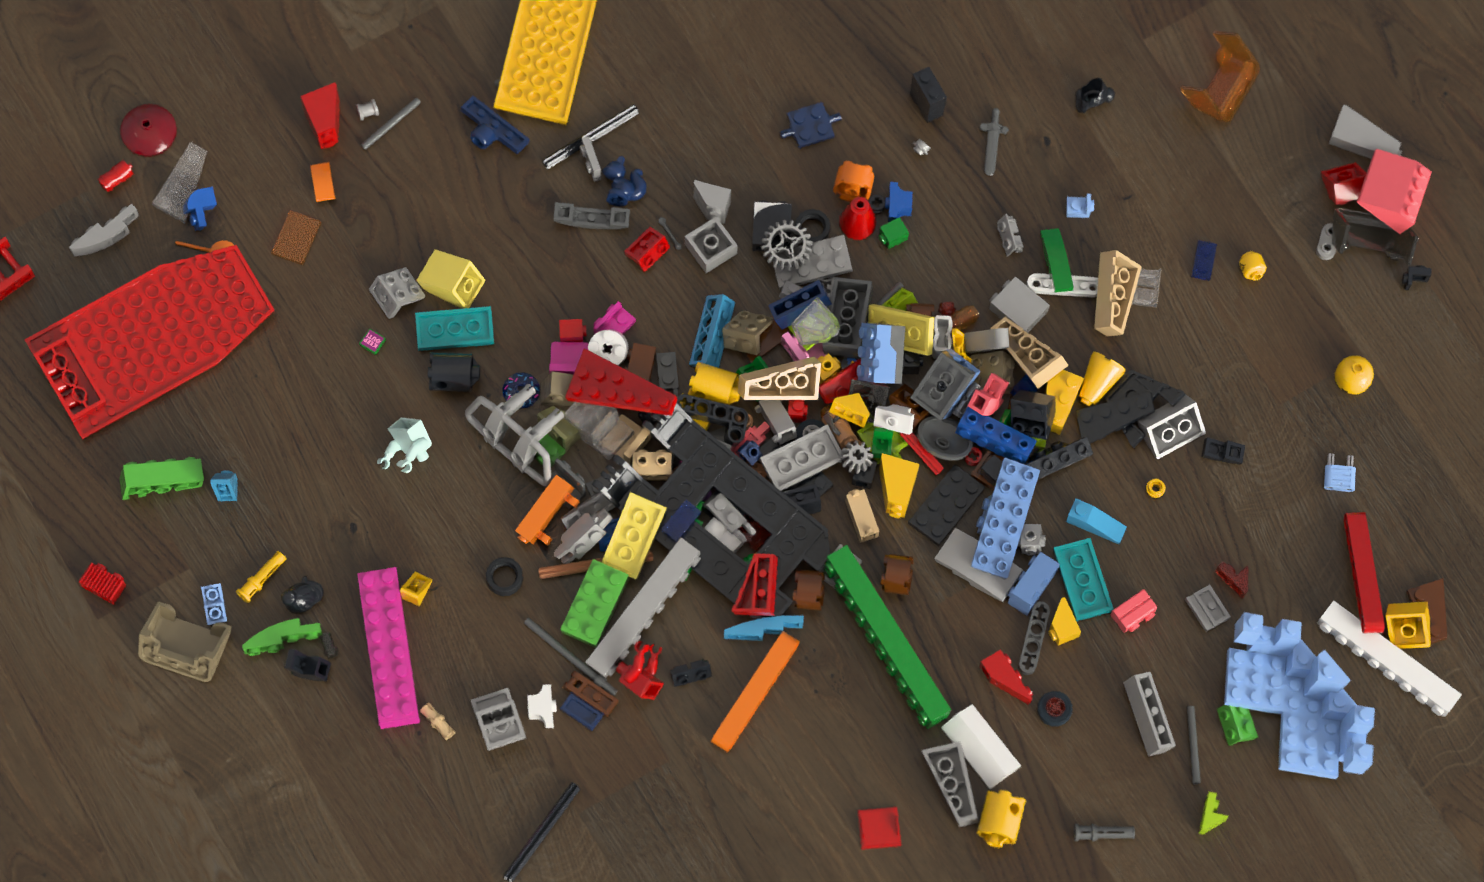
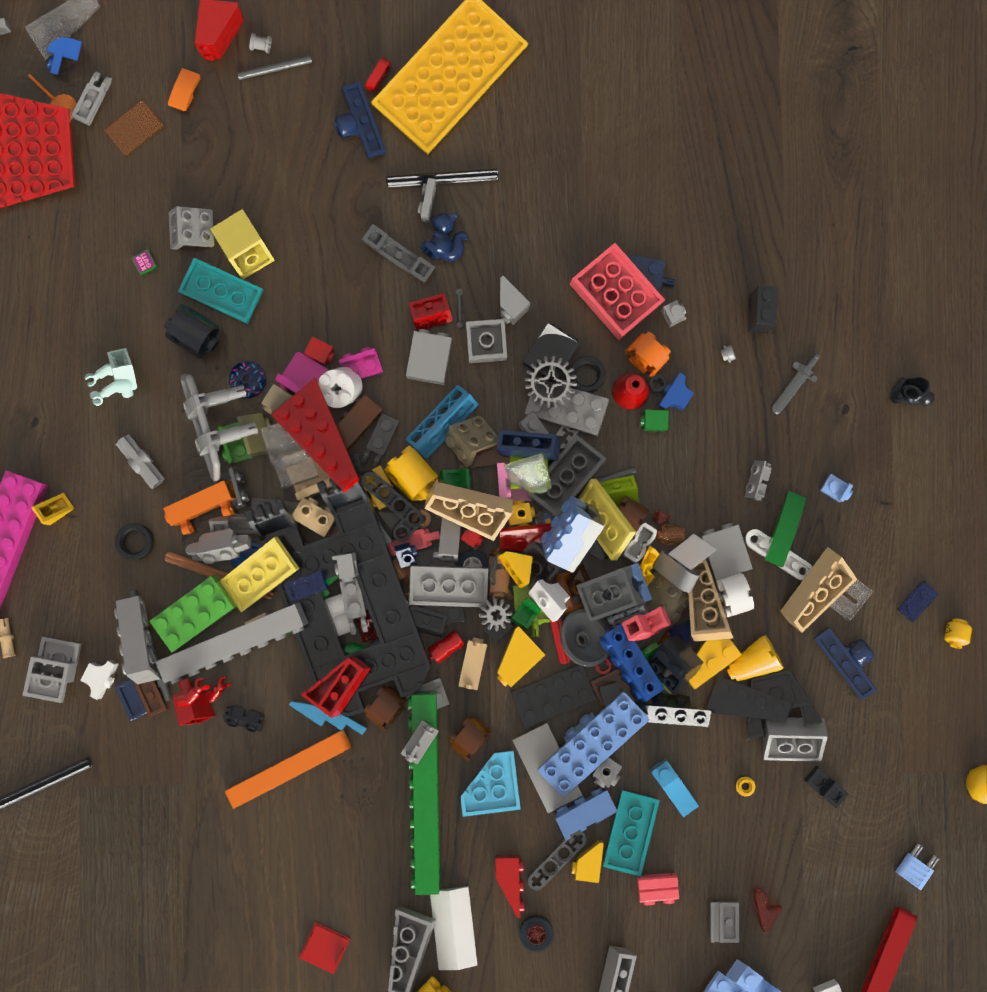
camera: 30 degrees right, 15 degrees up
(245, 232) = (91, 99): none -> light grey hinge
(469, 506) = (140, 461): none -> light grey piece
(485, 81) = (378, 74): none -> red beam
(559, 652) = (135, 640): none -> light grey wedge
(669, 285) = (429, 357): none -> light grey brick
(706, 483) = (346, 566): none -> light grey brick
(796, 147) = (616, 291): none -> coral slope
(829, 515) = (445, 647): none -> red piece
(857, 137) = (673, 313): none -> light grey brick
(857, 589) = (419, 742): none -> light grey hinge
(942, 608) = (493, 787): none -> medium azure plate
(990, 317) = (692, 551): none -> white sticker
(1049, 331) = (735, 594): none -> white brick
(1177, 338) = (849, 661): none -> dark blue plate

